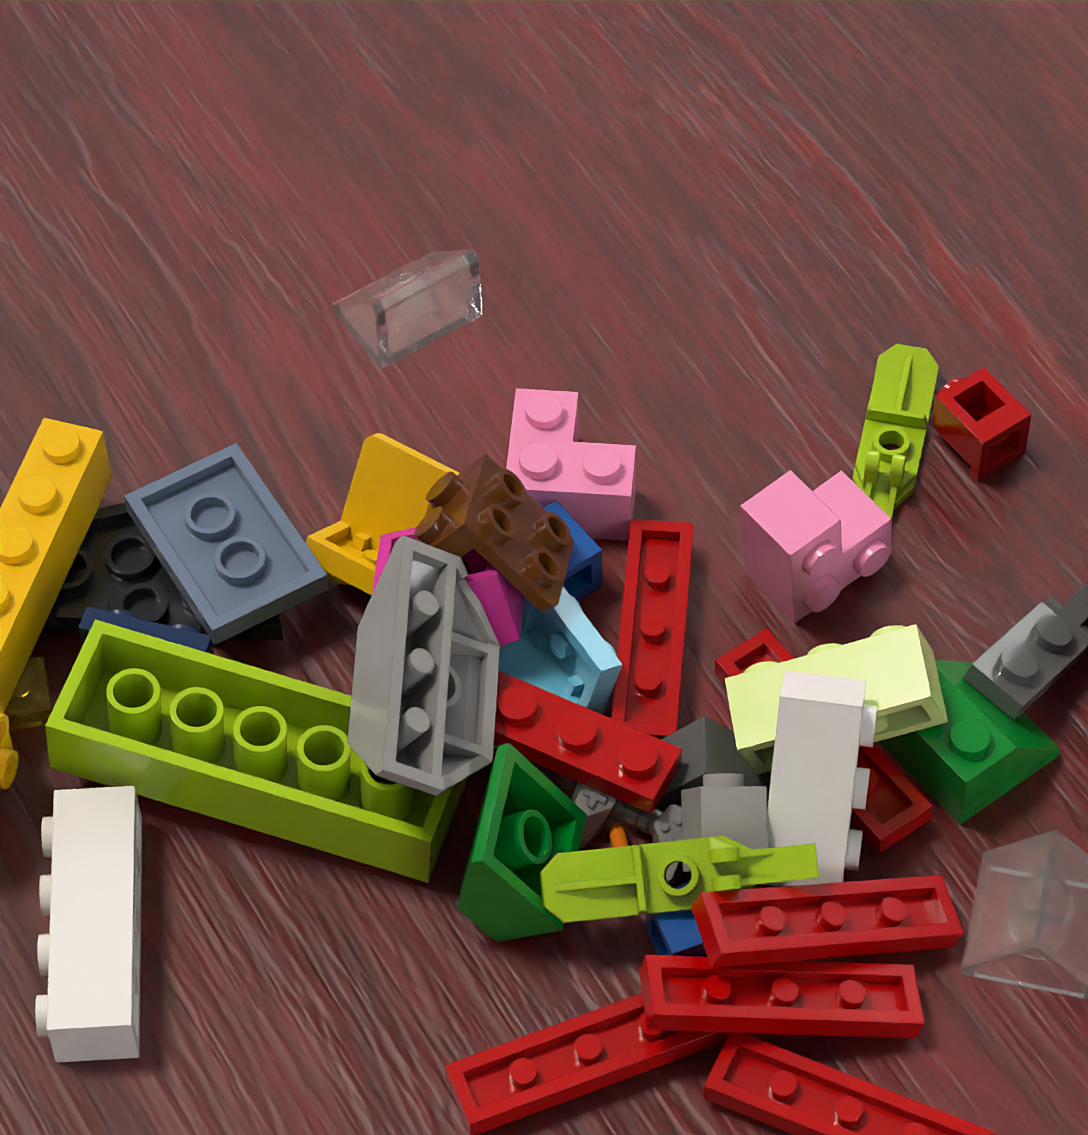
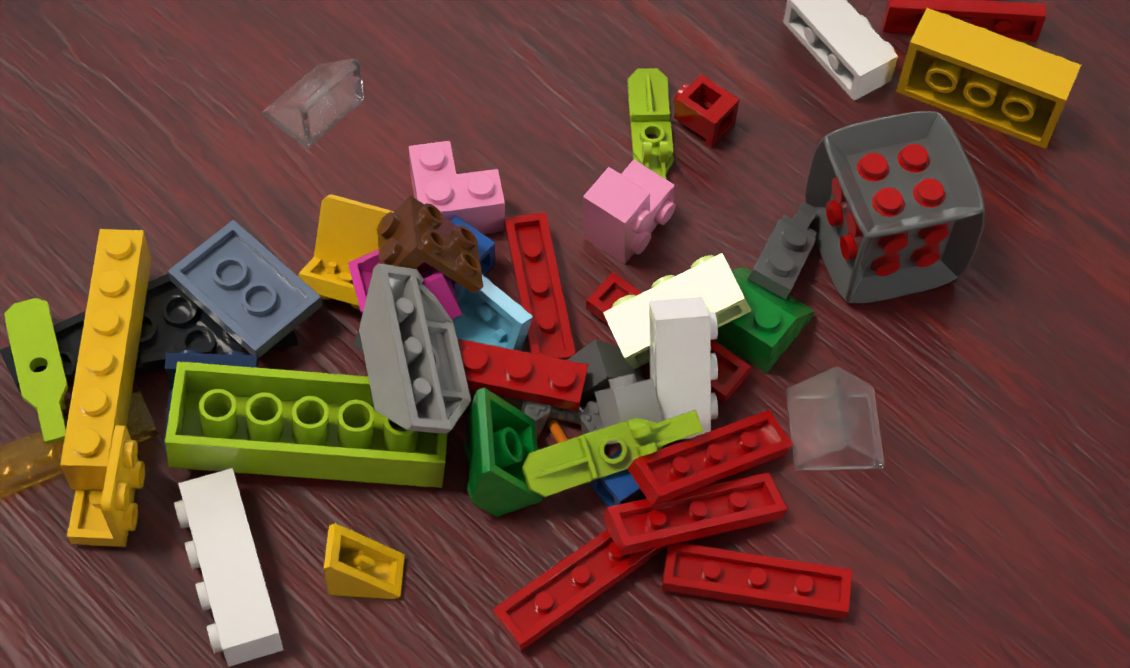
camera: 20 degrees left, 5 degrees up
(275, 962) = (361, 566): none -> yellow slope

